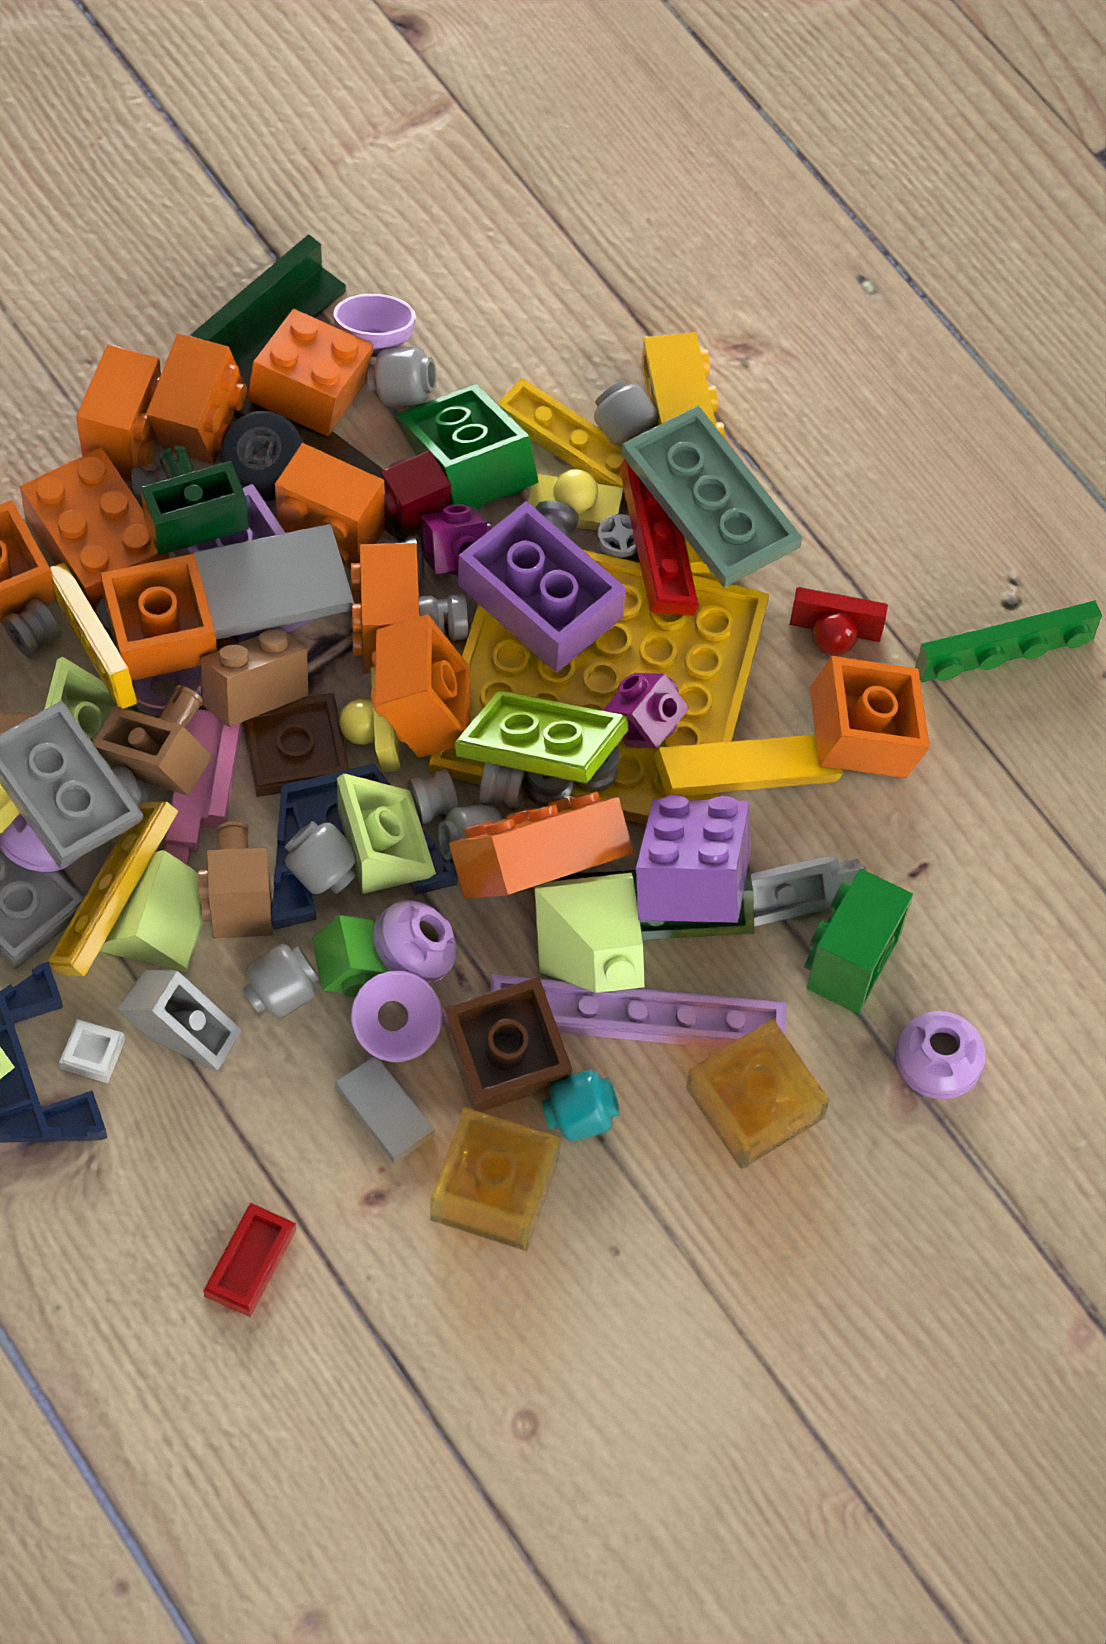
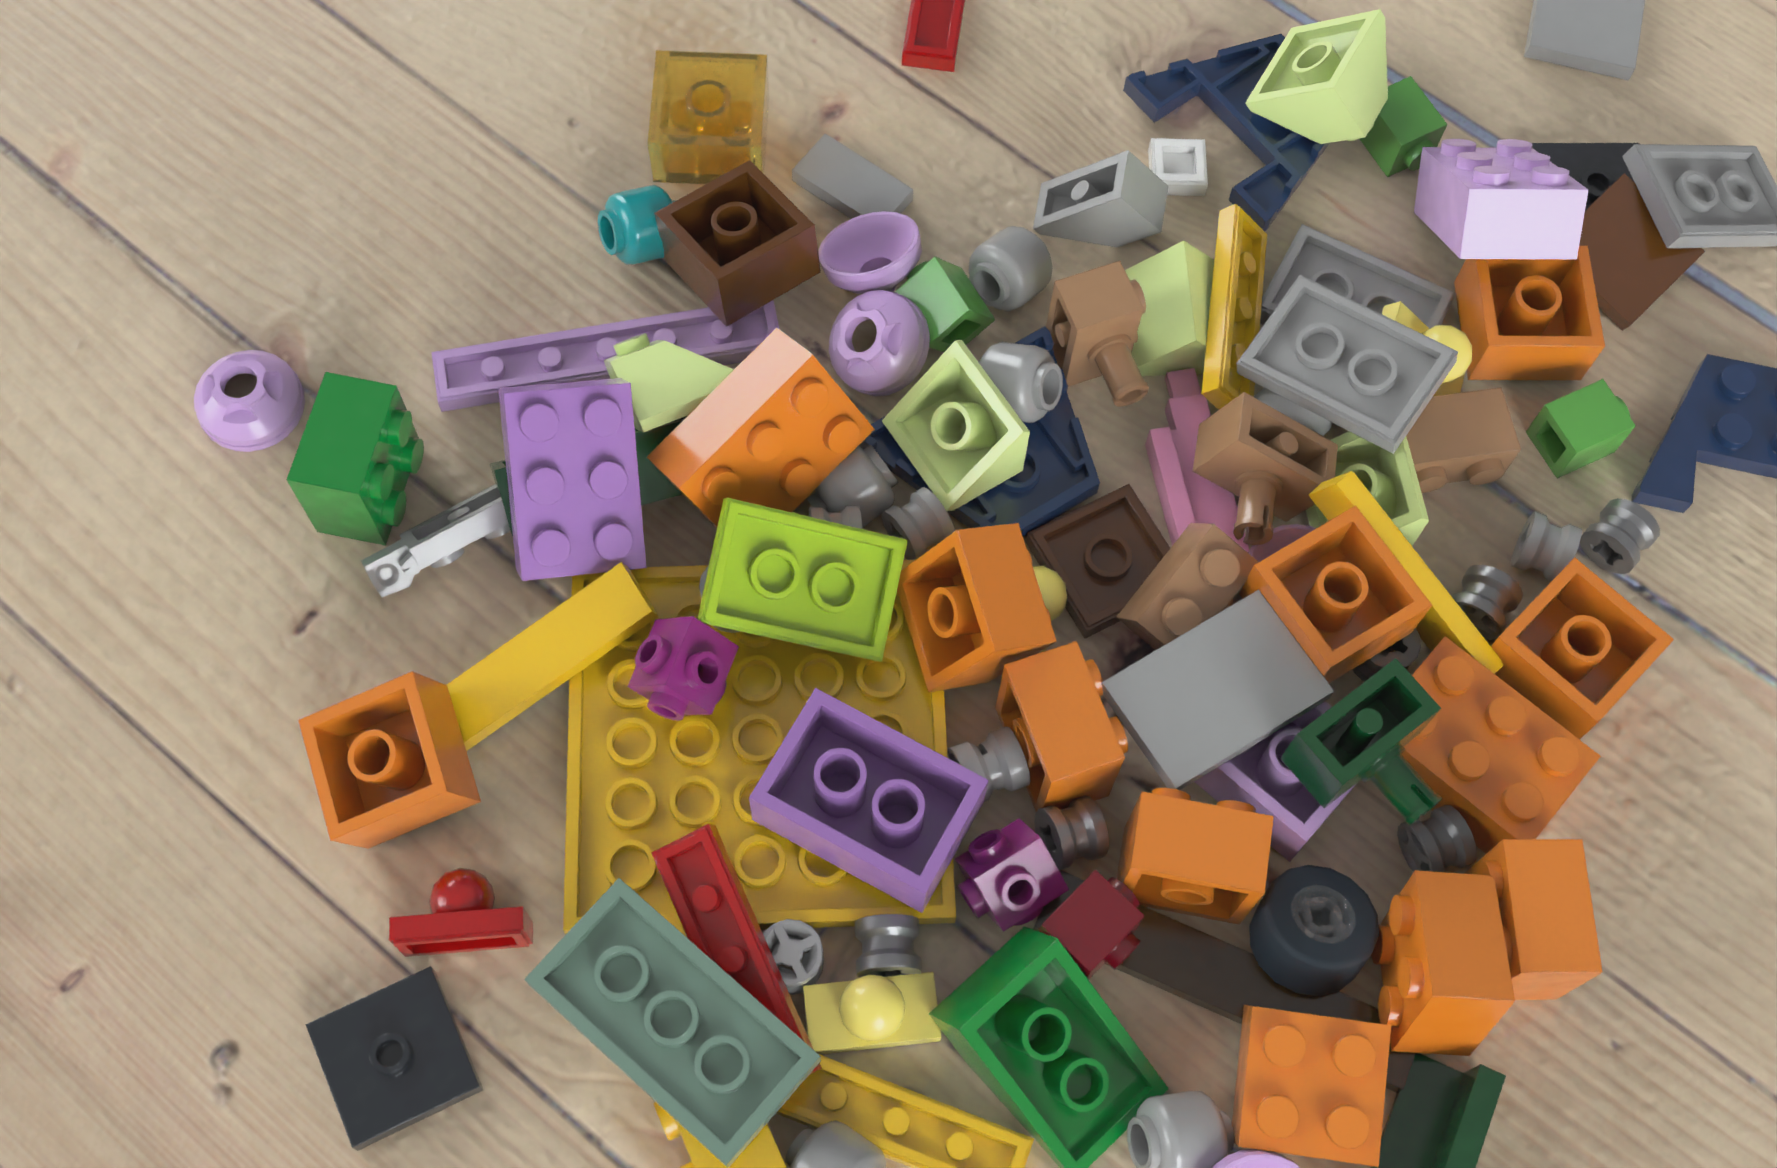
camera: 165 degrees right, 5 degrees up
(757, 1094) = (446, 265): clear yellow brick -> none
(898, 561) = (393, 1058): none -> black plate
(1007, 641) = (195, 970): green plate -> none

